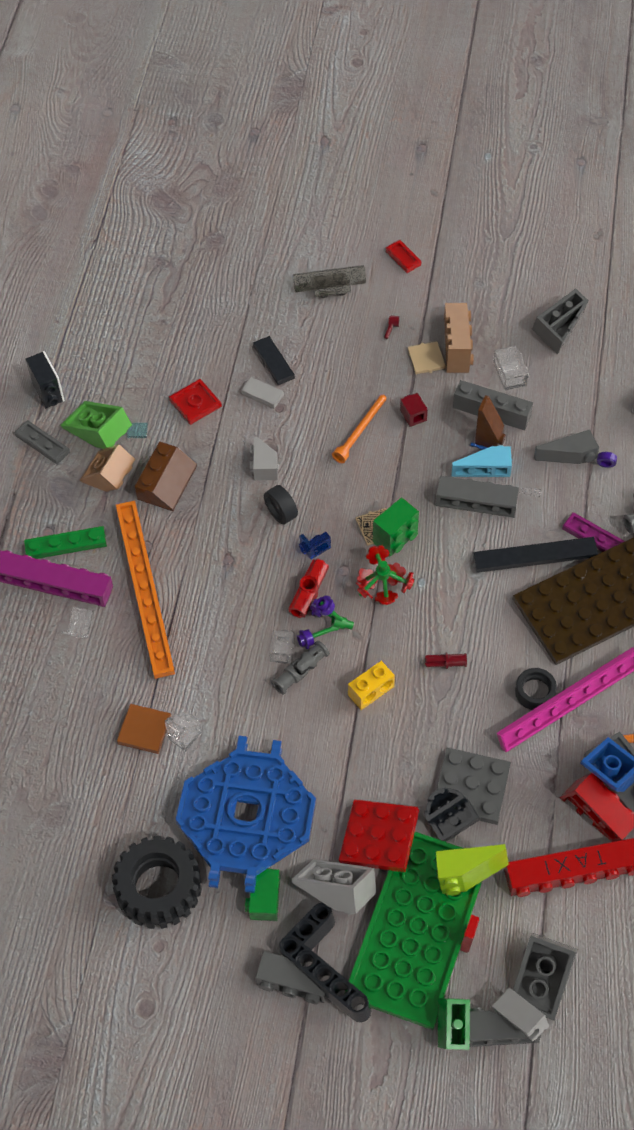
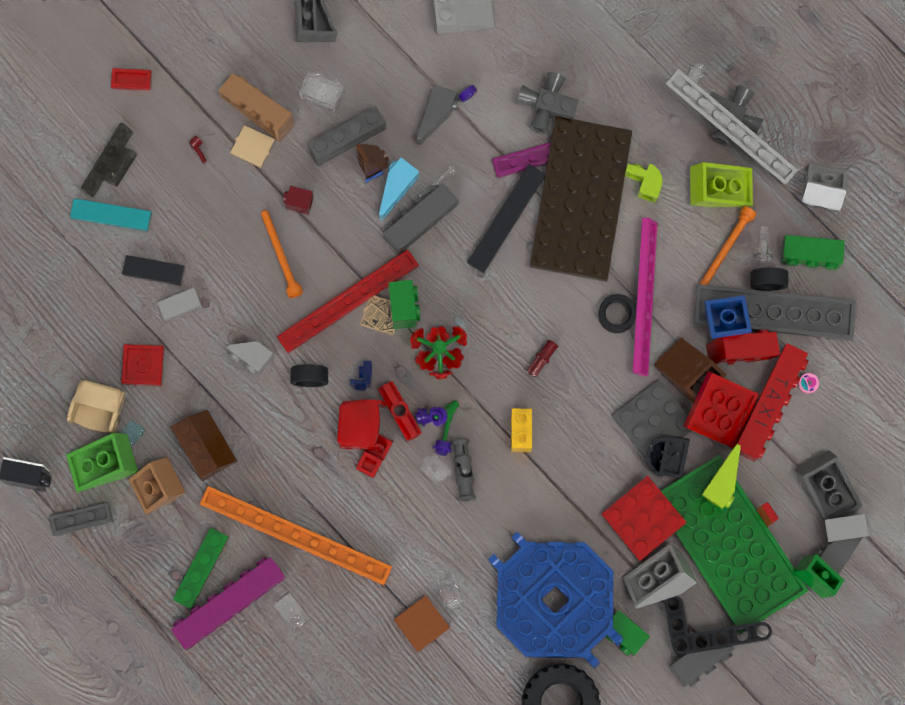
camera: 55 degrees left, 20 degrees up
(136, 391) = (96, 407): none -> tan piece
(253, 598) = (372, 460): none -> red slope
(271, 562) = (359, 425): none -> red piece
(291, 309) = (110, 214): none -> teal tile
(361, 494) = (347, 301): none -> red tile
(528, 822) = (721, 410): none -> red plate
(540, 781) = (686, 368): none -> reddish brown slope
(621, 889) = (808, 383): none -> tile

